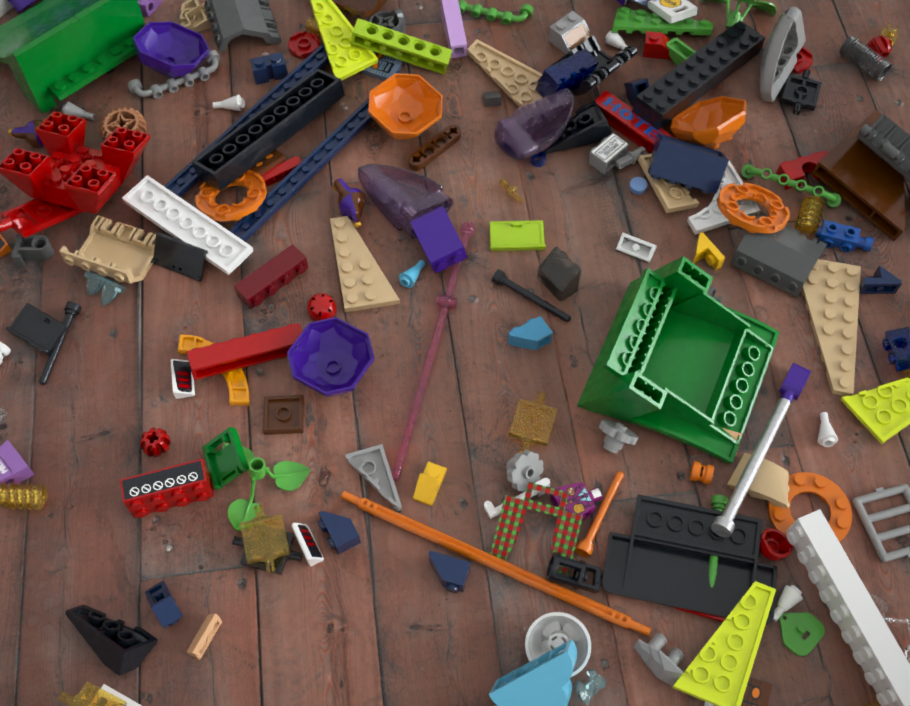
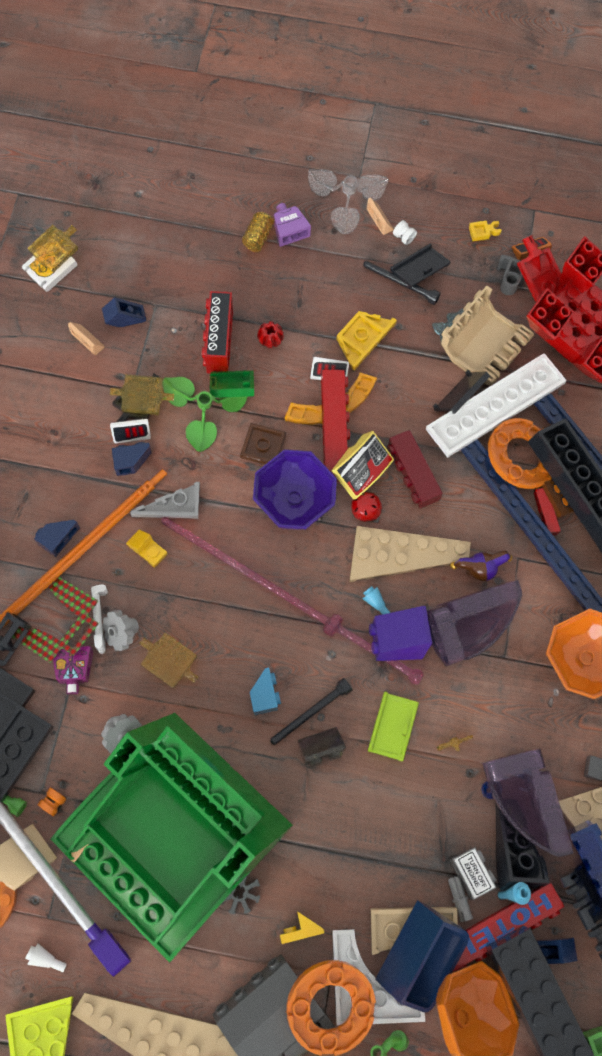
camera: 105 degrees right, 10 degrees up
(113, 642) = (108, 276): black wedge -> none
(135, 359) = (362, 336): none -> yellow wing
(282, 313) = (362, 464): none -> slope
(432, 145) = (534, 680): reddish brown beam -> none
(584, 546) = (29, 660): orange piece -> none
(612, 116) = (517, 893): none -> medium azure cone
(636, 247) = (337, 854): white slope -> none
(638, 185) = (419, 891): medium blue tile -> none

